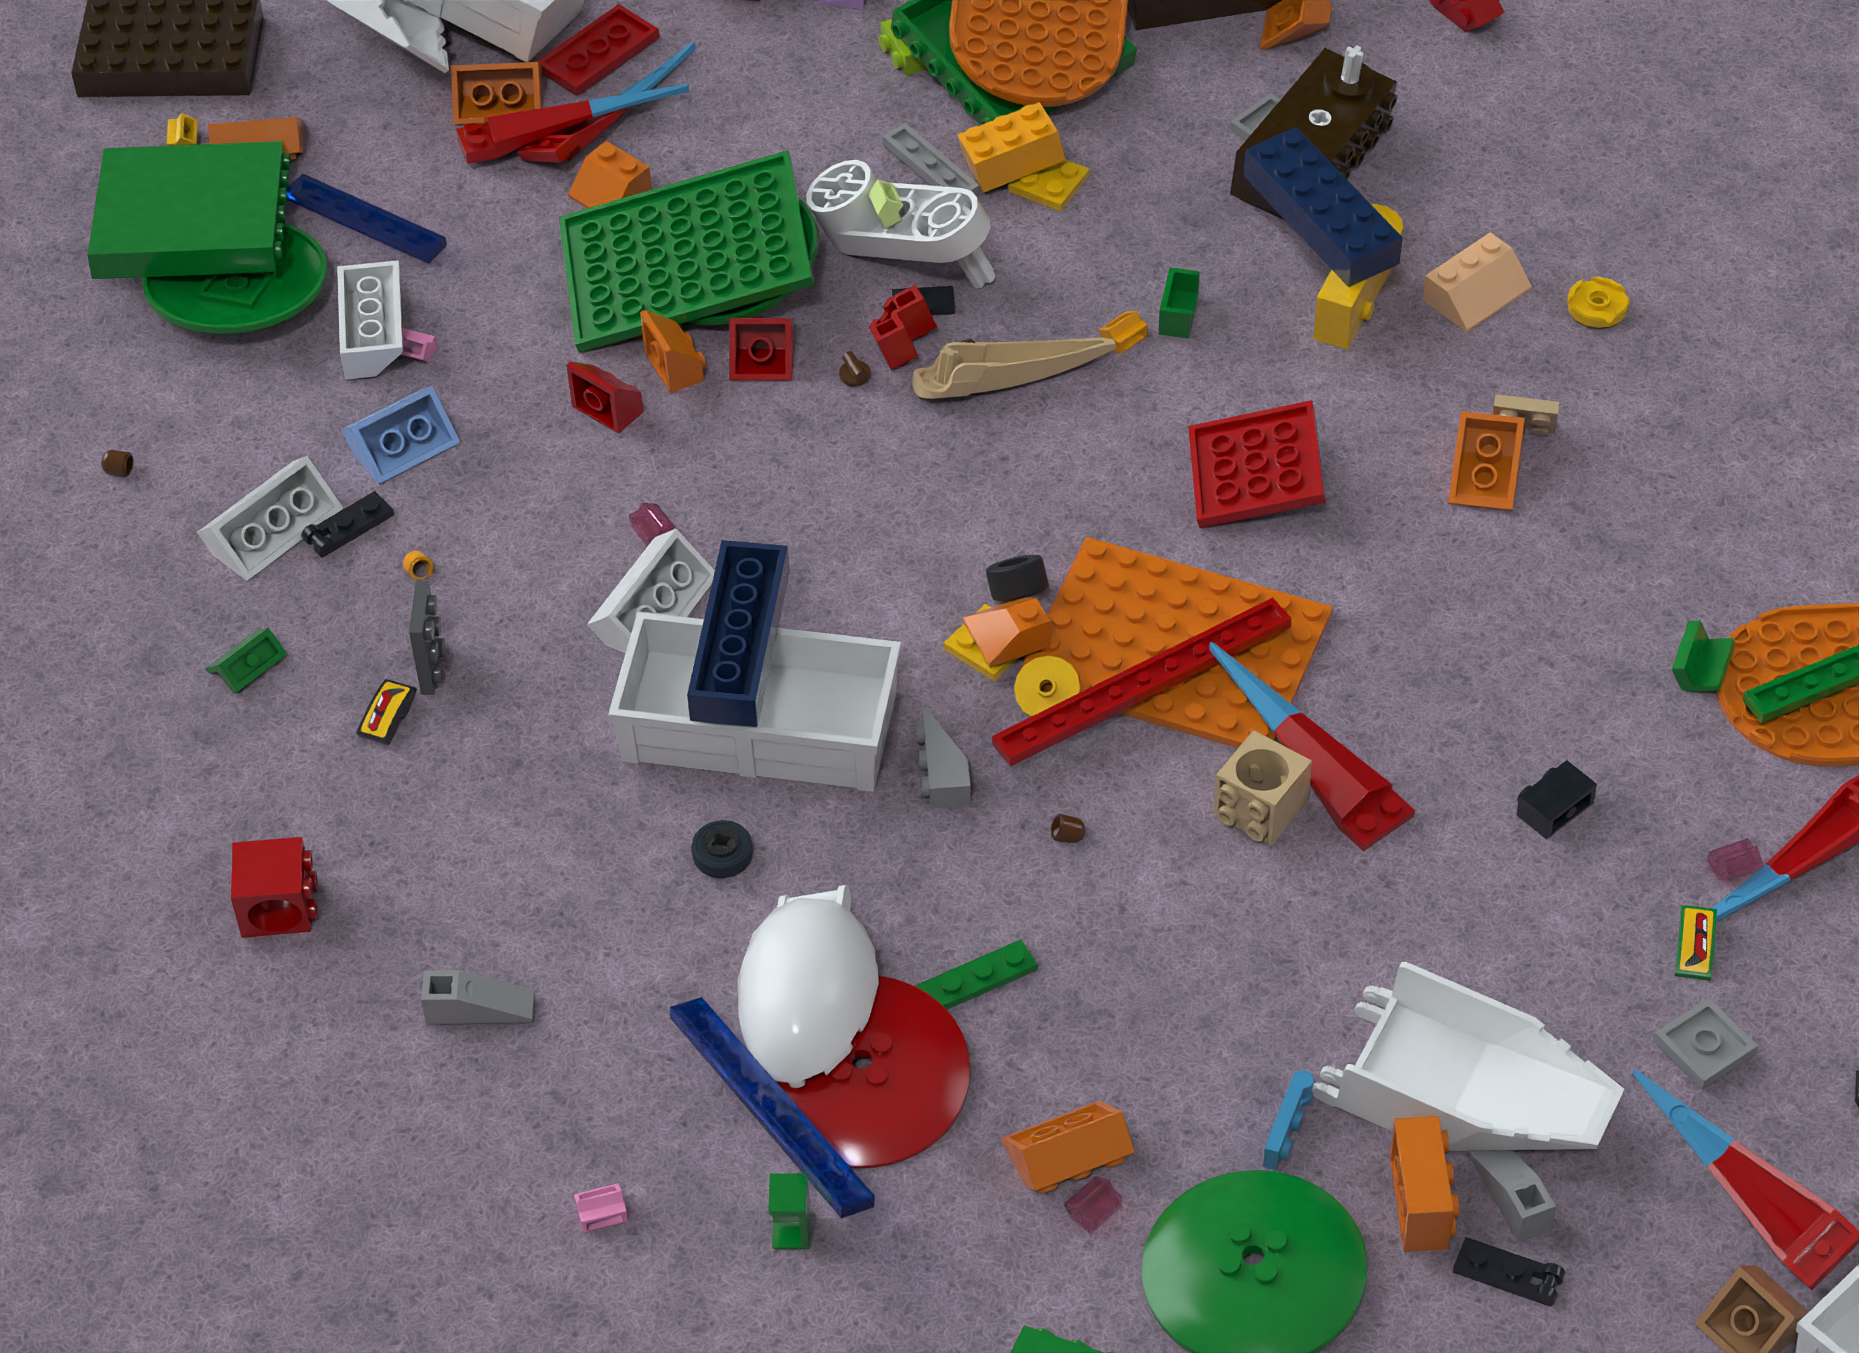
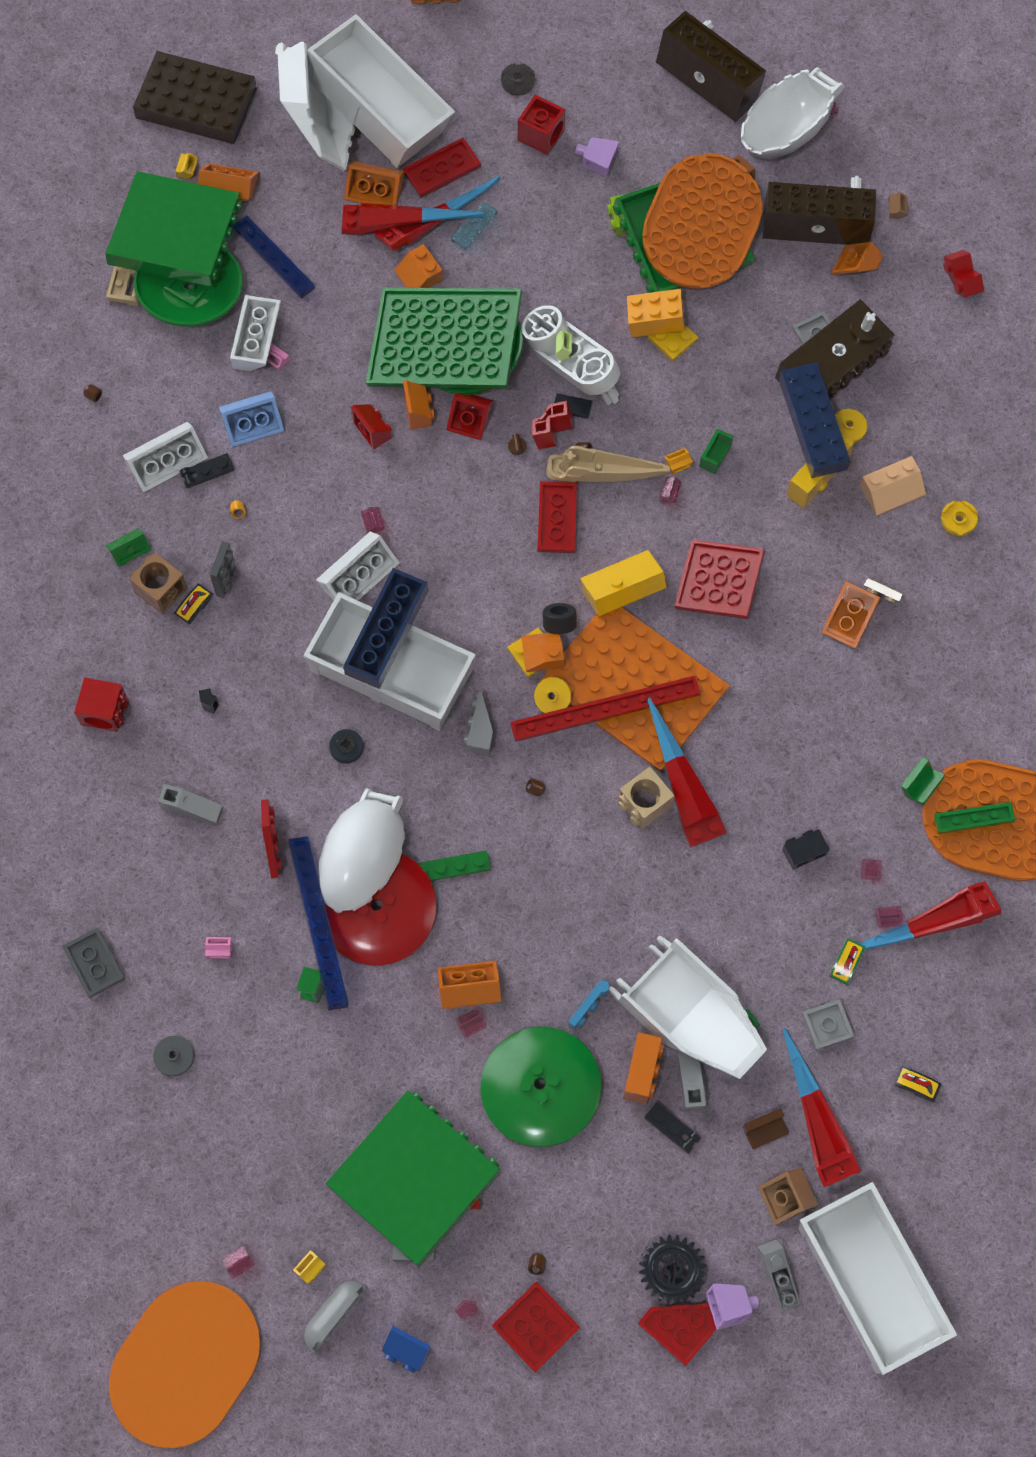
camera: 15 degrees right, 20 degrees up
(119, 311) = (119, 286): none -> tan plate
(317, 689) = (163, 597): none -> medium nougat brick
(379, 1290) = (93, 962): none -> dark grey plate
(459, 839) = (208, 700): none -> black piece
(630, 990) = (270, 838): none -> red plate
(677, 110) = (467, 233): none -> clear light blue tile
(926, 159) = (607, 308): light grey plate -> none
(957, 449) = (557, 517): none -> red plate
(1102, 504) = (623, 583): none -> yellow brick
(1126, 371) = (670, 490): none -> clear pink piece
(1668, 1226) = (765, 1129): none -> reddish brown panel
(1674, 804) = (871, 869): none -> clear pink plate

